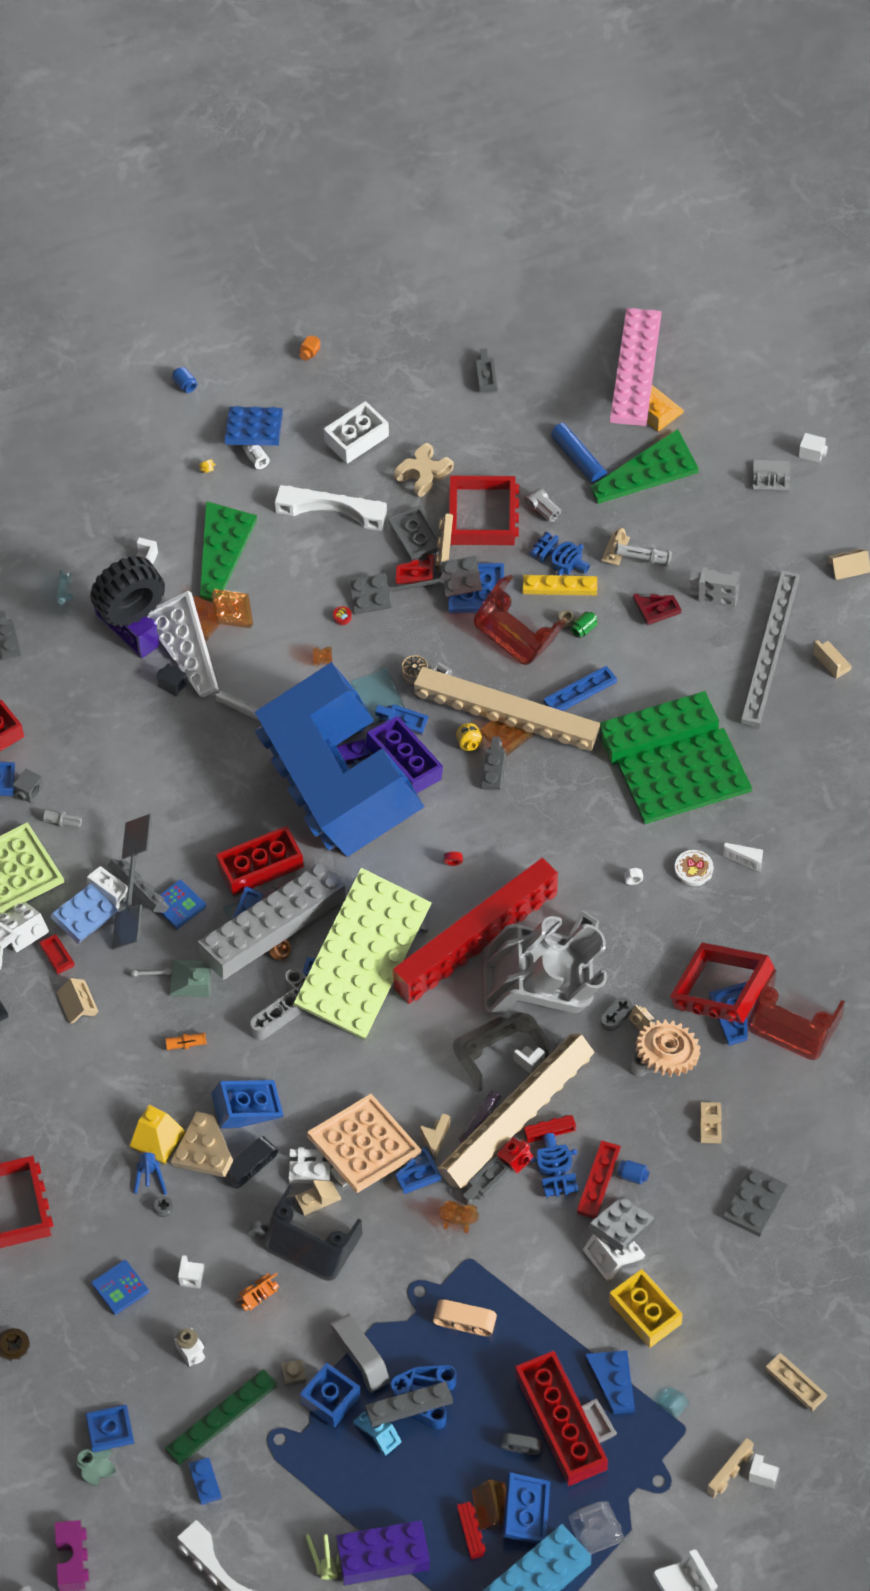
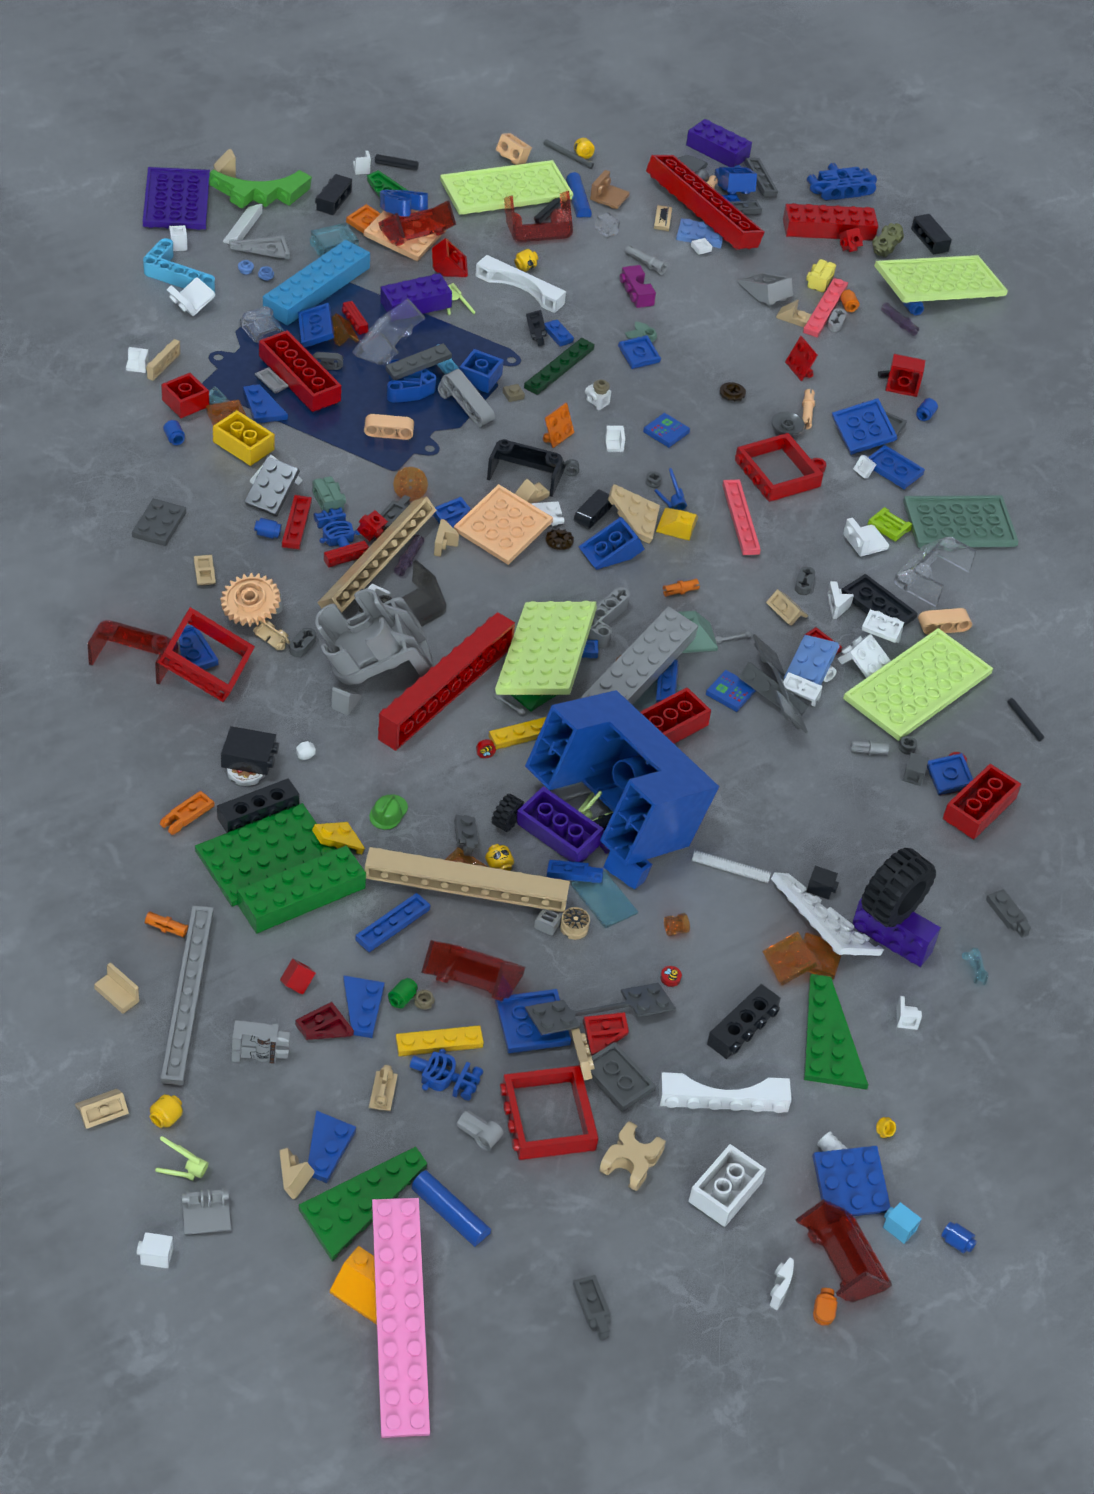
camera: 160 degrees right, 10 degrees down
(18, 997) = (838, 602): none -> white slope
(20, 813) = (910, 746): none -> dark grey bush
(45, 1039) = (808, 581): none -> dark grey beam
(80, 1134) = (741, 517): none -> coral plate
(225, 394) = (901, 1222): none -> medium azure brick
(232, 1488) = (536, 326): none -> black hinge
(272, 372) = (847, 1249): none -> clear red windscreen
(296, 1133) = (559, 544): none -> dark brown gear
(304, 556) = (744, 1021): none -> black brick
(339, 360) = (782, 1282): none -> white slope
(416, 877) = (516, 733): none -> yellow plate
(450, 776) = (506, 812): none -> black tyre
(450, 1477) = (380, 340): none -> clear windscreen
(557, 1213) = (328, 493): none -> sand green brick
(561, 808) = (388, 811): none -> bright green piece
(616, 778) = (338, 835): none -> yellow wing
(619, 624) = (363, 1004): none -> blue wing
(652, 556) = (339, 1076): light grey pin -> none
(659, 1367) = (221, 410): none -> clear orange plate
(668, 512) = (328, 1144): none -> blue wing
(673, 650) = (297, 976): none -> red panel
(689, 872) = (249, 750): none -> black brick
(698, 821) = (257, 805): none -> black brick
(701, 487) = (294, 1174): none -> tan slope
(709, 1389) = (185, 395): none -> red brick
(727, 1335) = (174, 432): none -> blue brick
(744, 855) = (193, 779): white slope -> none
(755, 824) = (187, 812): none -> orange hinge
(777, 506) = (195, 1165): none -> yellowish green plant
(784, 713) = (166, 924): none -> orange pin
(796, 1382) = (115, 411): tan plate -> none
(797, 550) = (166, 1110): none -> yellow head

